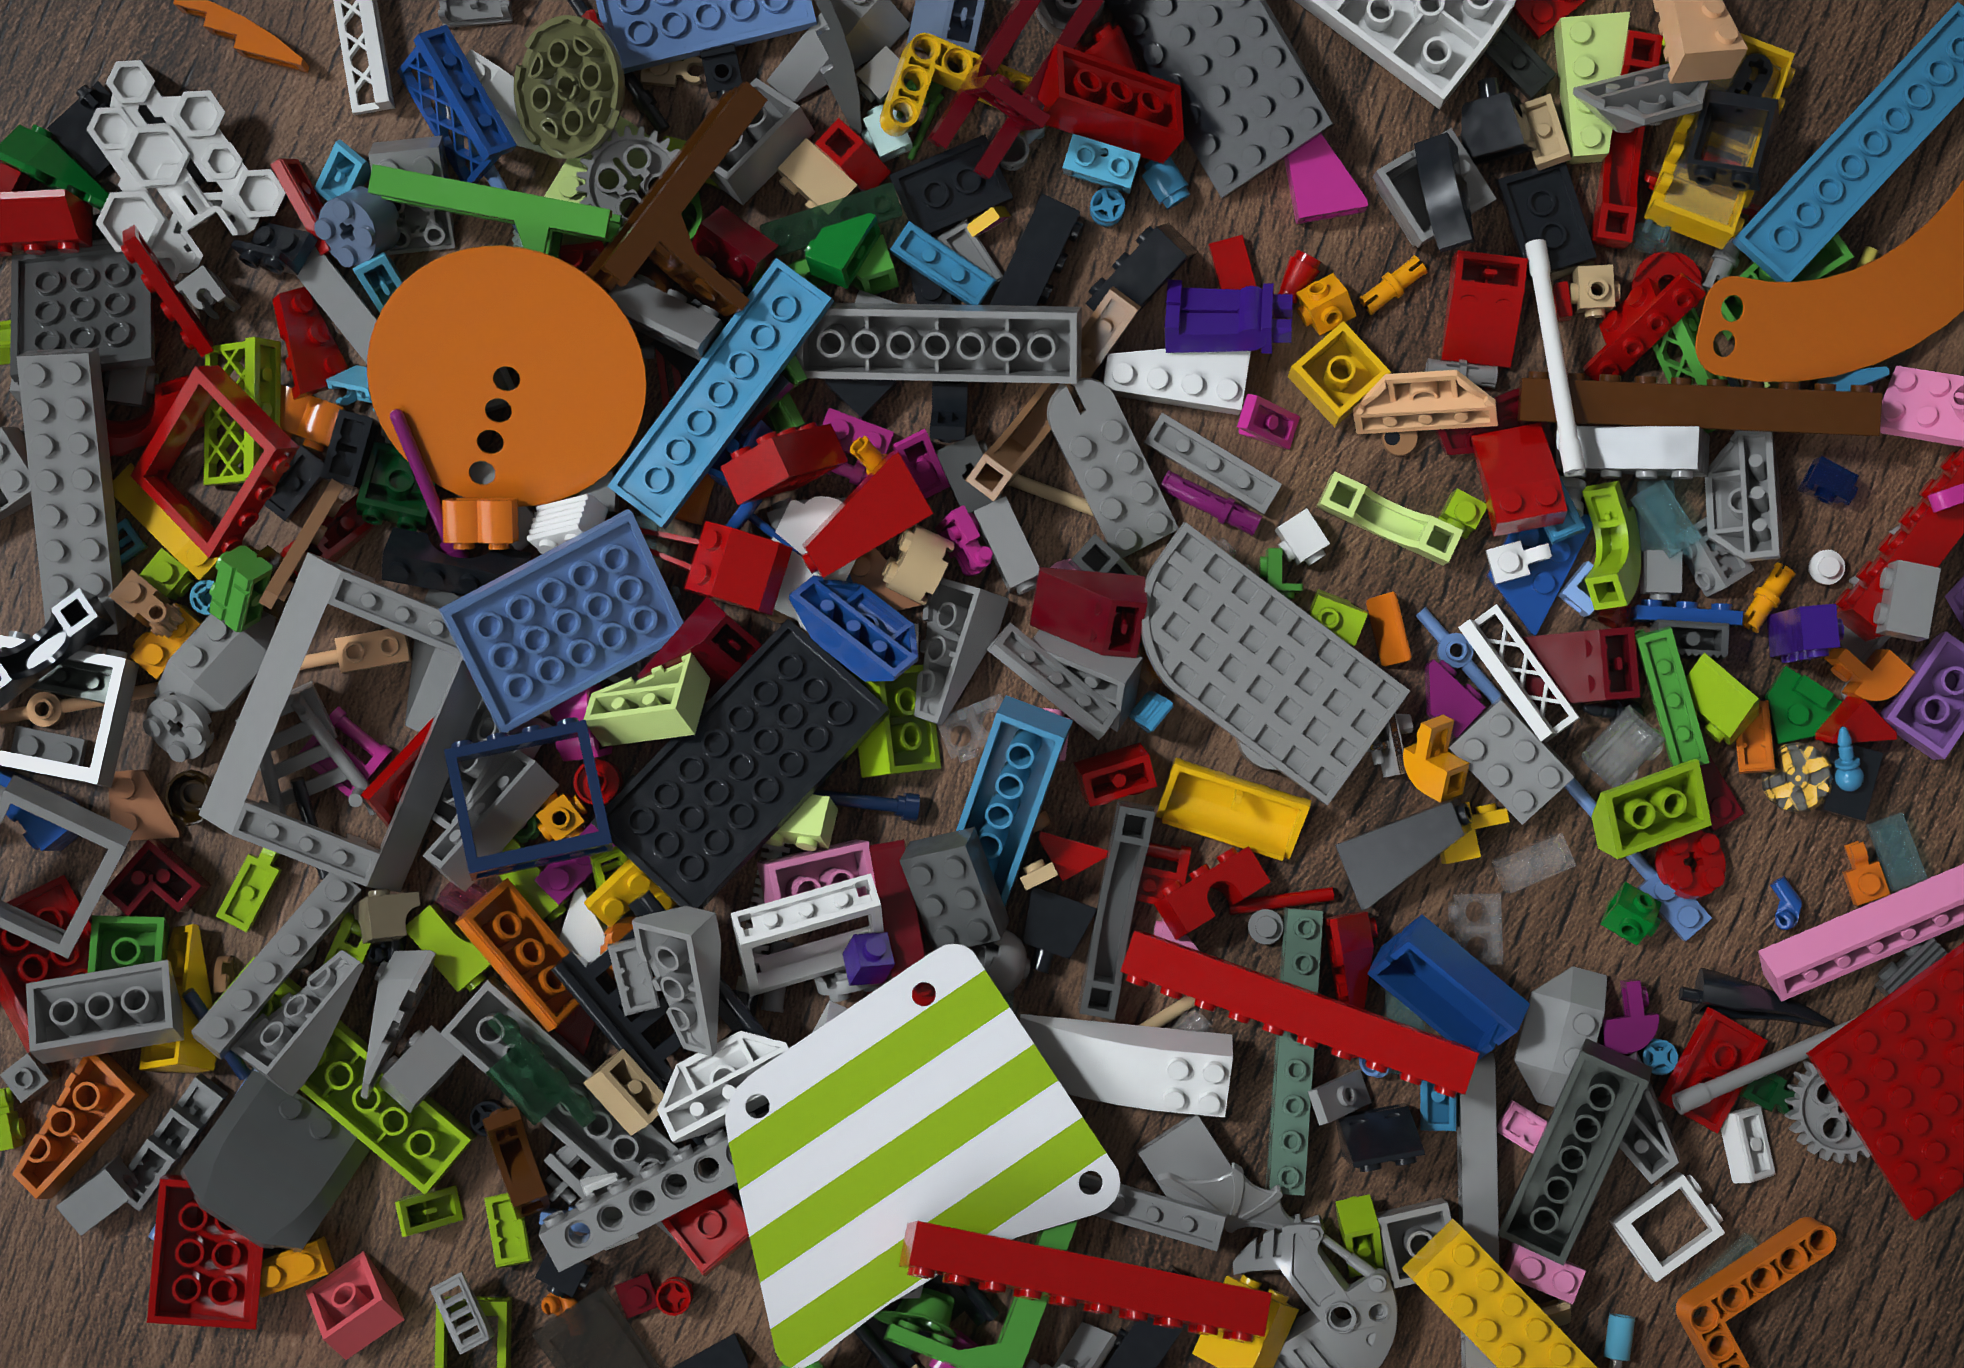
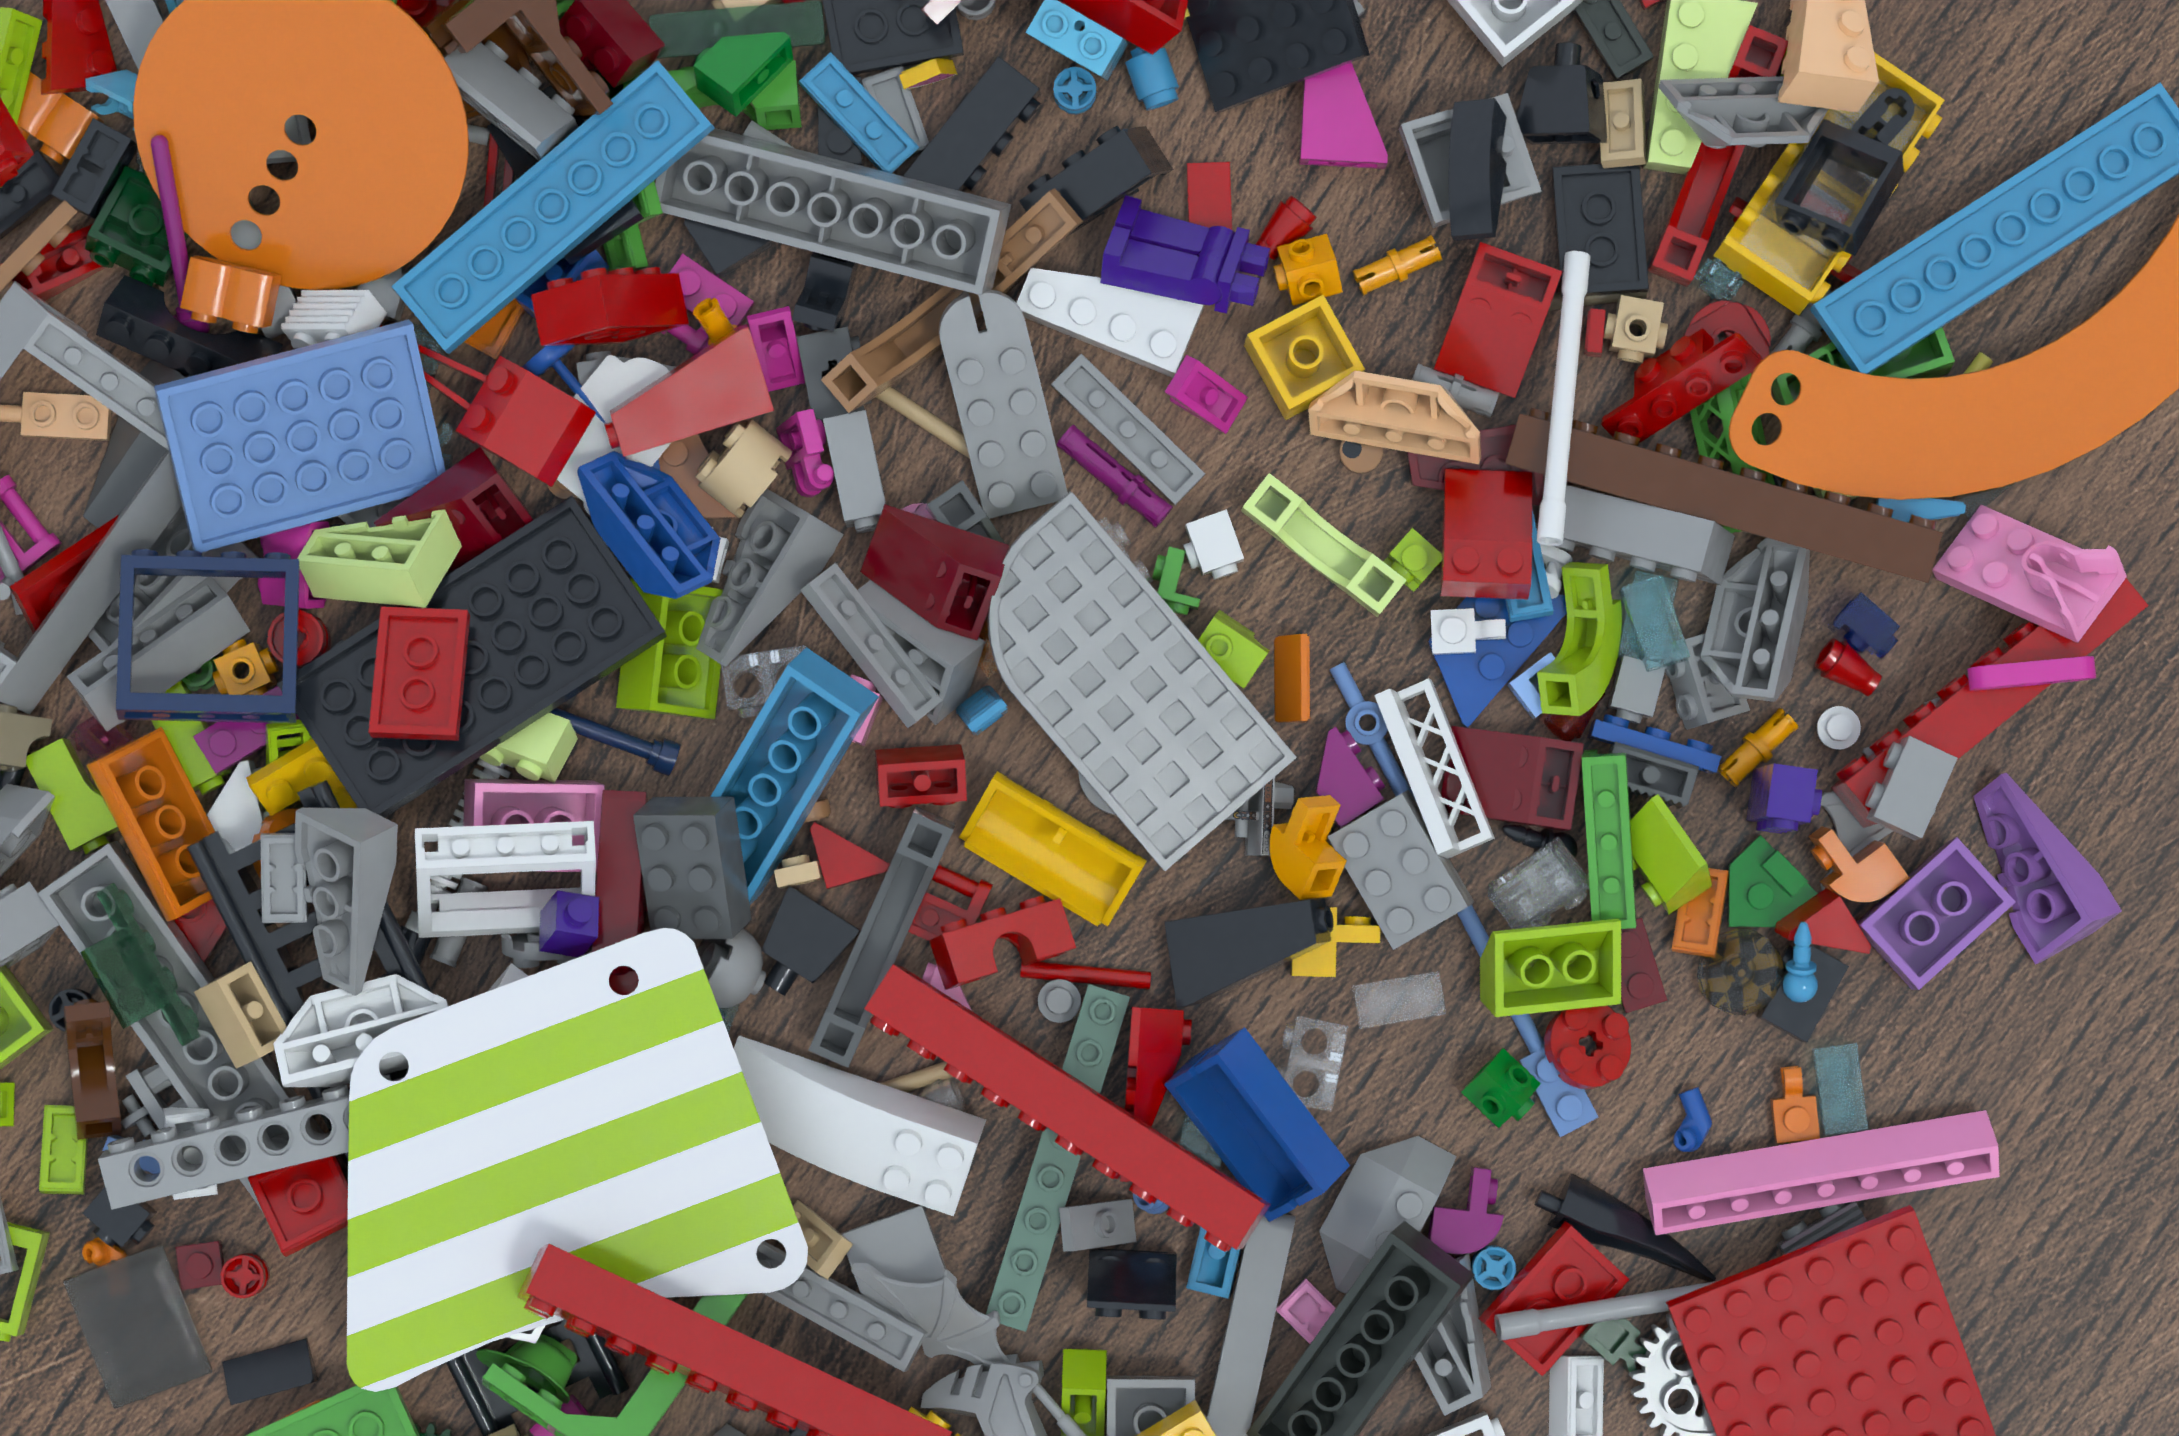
camera: 10 degrees right, 0 degrees up
(702, 788) = (419, 673): none -> red plate
(1129, 1162) = (824, 1242): none -> tan plate
(1820, 517) = (1845, 666): none -> red cone

